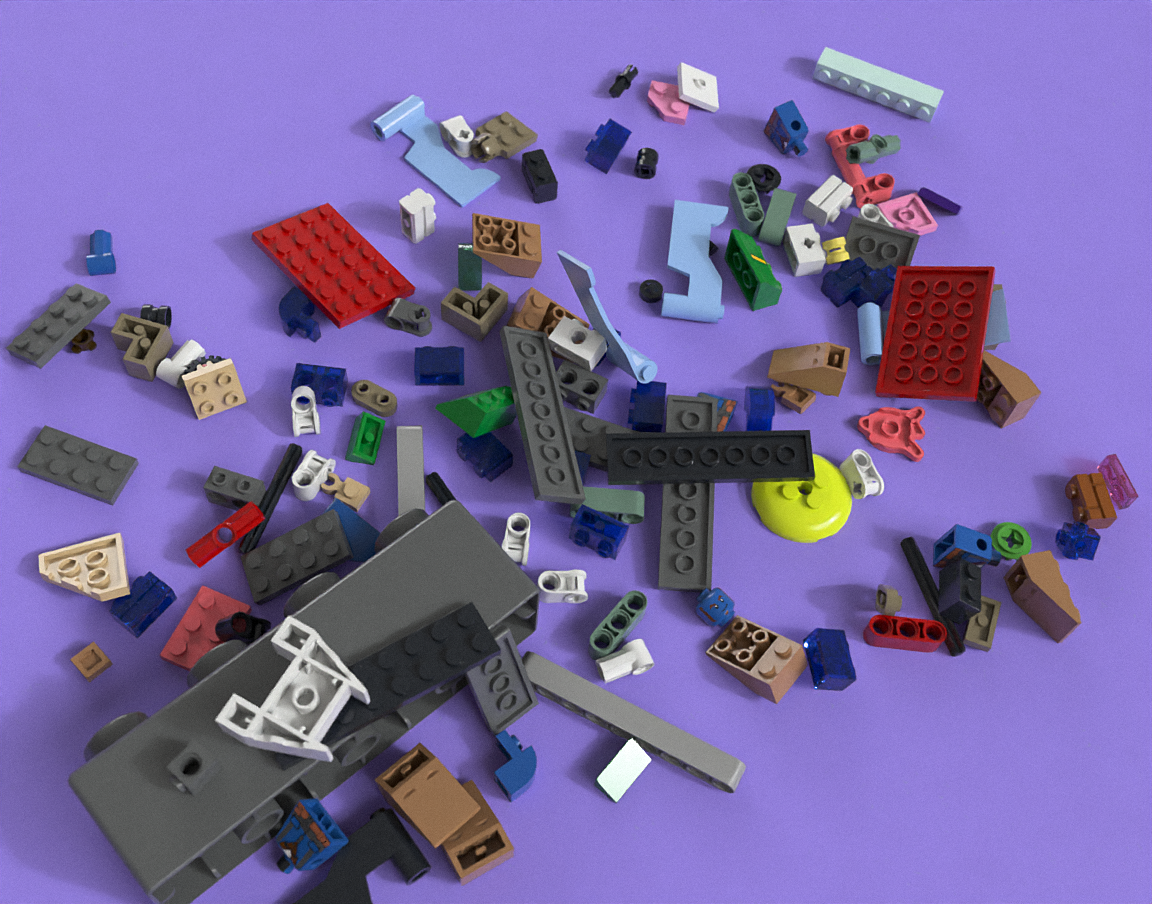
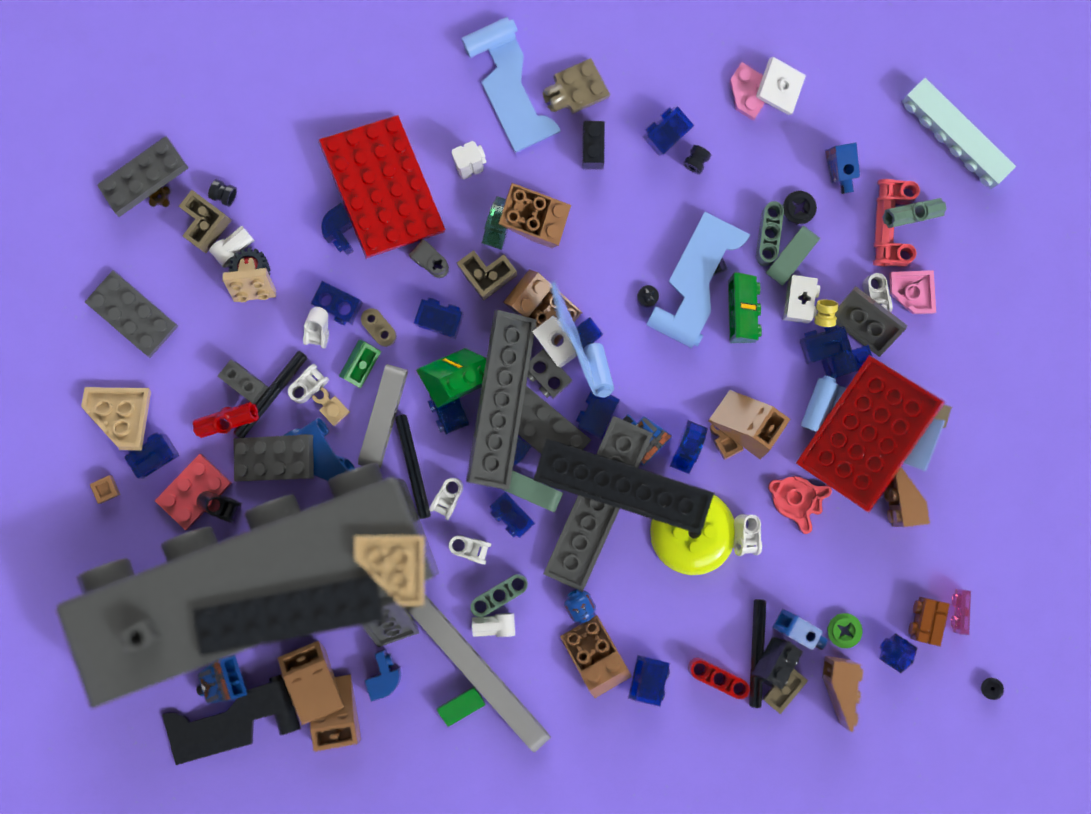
camera: 25 degrees right, 25 degrees up
(101, 256) = (191, 118): blue piece -> none
(301, 702) = (225, 620): white wedge -> none
(458, 135) = (537, 72): white piece -> none
(492, 582) = (395, 565): none -> tan plate
(623, 81) = (713, 55): black axle -> none
(828, 200) = (846, 253): white brick -> none
(887, 600) = (714, 653): dark tan plate -> none
(940, 200) = (952, 285): dark purple tile -> none

